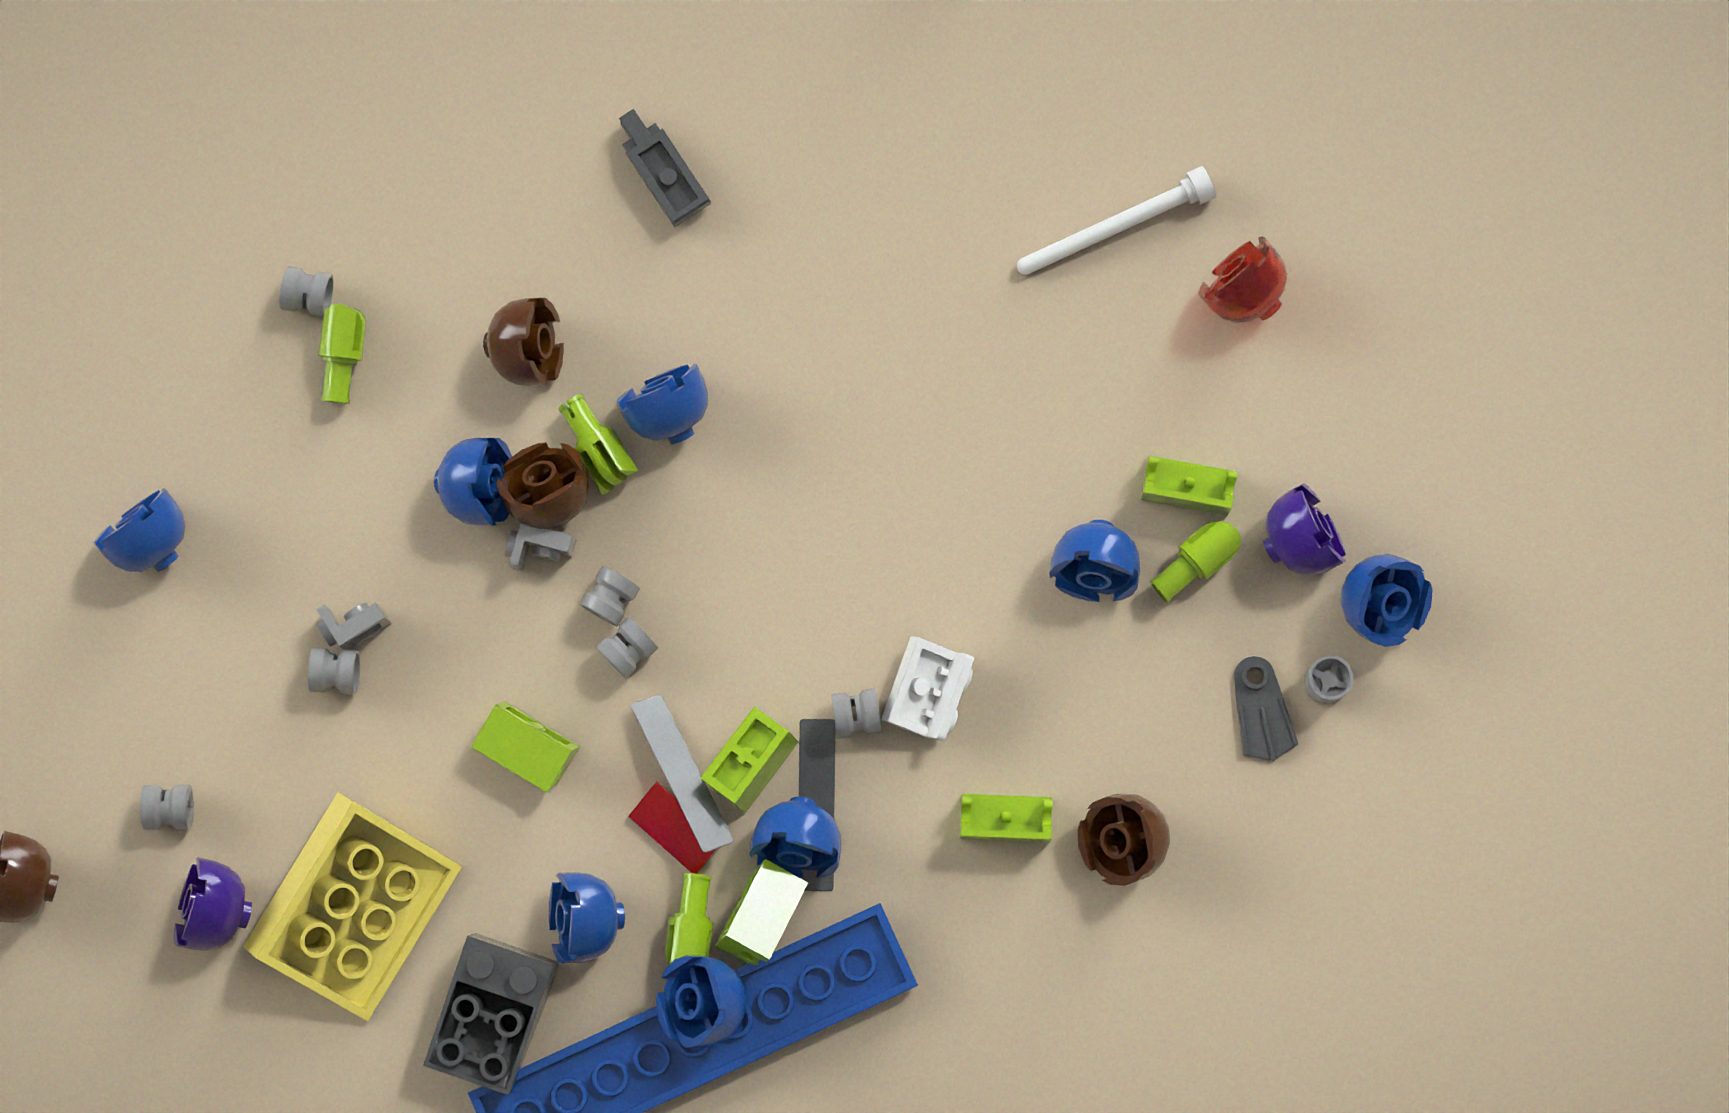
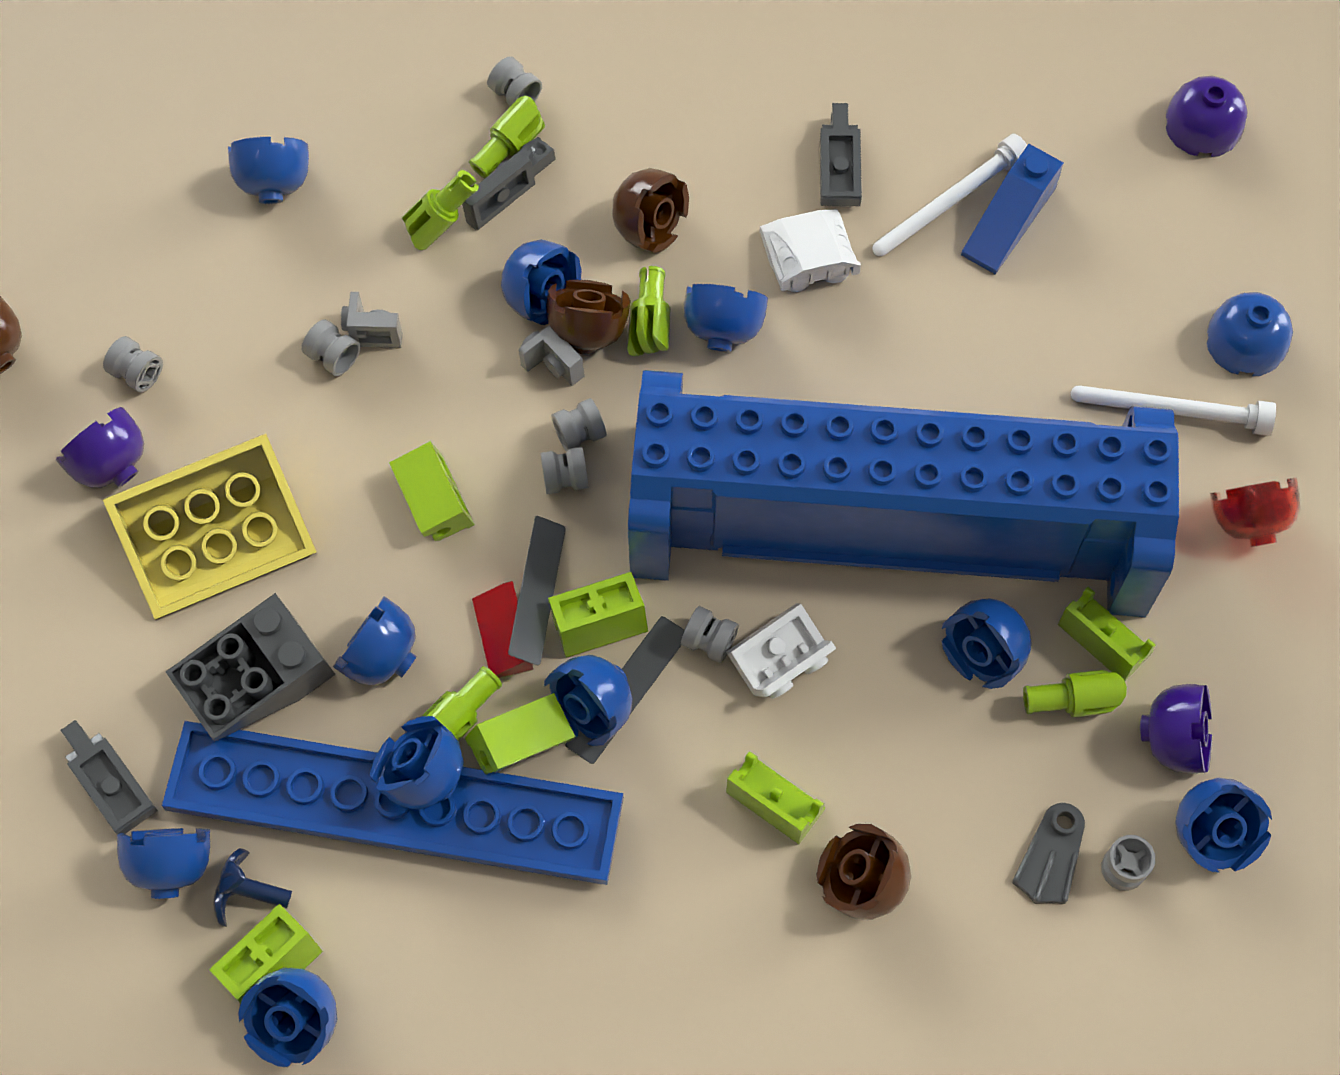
camera: 30 degrees right, 15 degrees down
(335, 473) = (438, 210): none -> lime arm
(373, 395) = (507, 183): none -> dark grey hinge
(694, 281) = (809, 249): none -> white slope
(813, 61) = (1004, 158): none -> white piece
(853, 120) = (1013, 208): none -> blue slope
(943, 482) = (905, 489): none -> blue brick
(1139, 107) = (1250, 334): none -> blue cylinder

